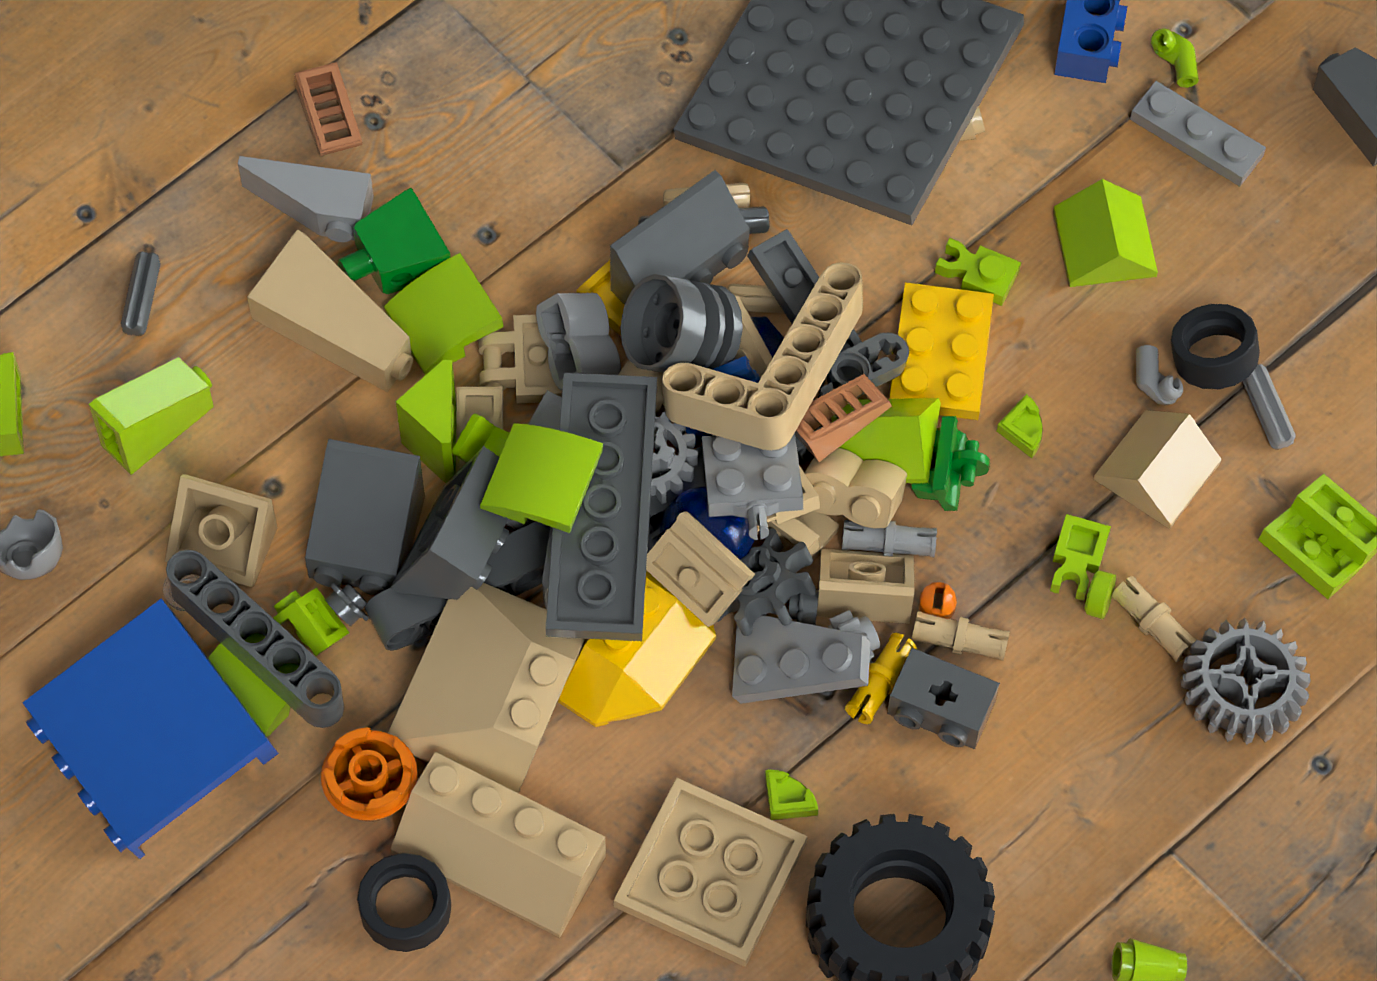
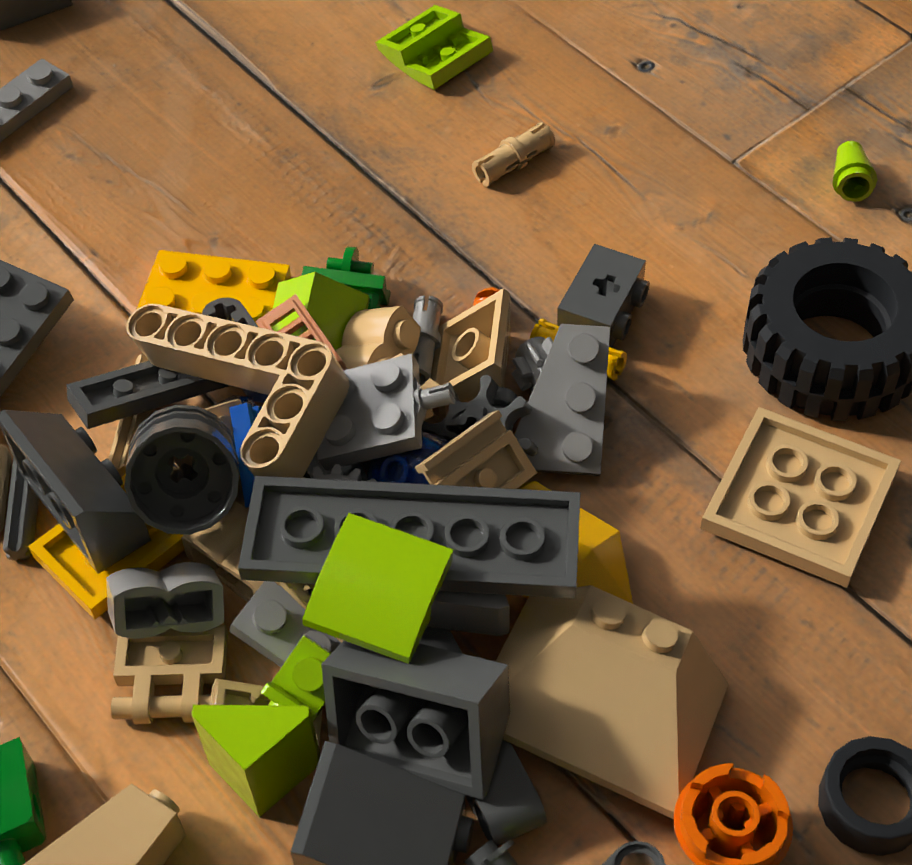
camera: 85 degrees left, 10 degrees down
(443, 313) = (93, 753): lime slope -> none
(500, 844) = (796, 689): tan slope -> none
(788, 797) = (706, 433): lime tile -> none
(960, 635) = (530, 289): tan pin -> none
(981, 272) = (126, 262): lime plate -> none
(1023, 426) = (305, 240): lime tile -> none
(1079, 550) = (446, 197): lime plate -> none
(1100, 594) = (491, 184): lime tile -> none
(1104, 236) = (109, 175): lime slope -> none
(1150, 381) = (268, 147): light grey arm -> none
(1160, 465) = (353, 147): tan slope -> none
(1207, 322) = (231, 74): black tyre -> none
(1269, 408) = (305, 73): light grey axle -> none
(1280, 676) = (578, 94): light grey gear -> none

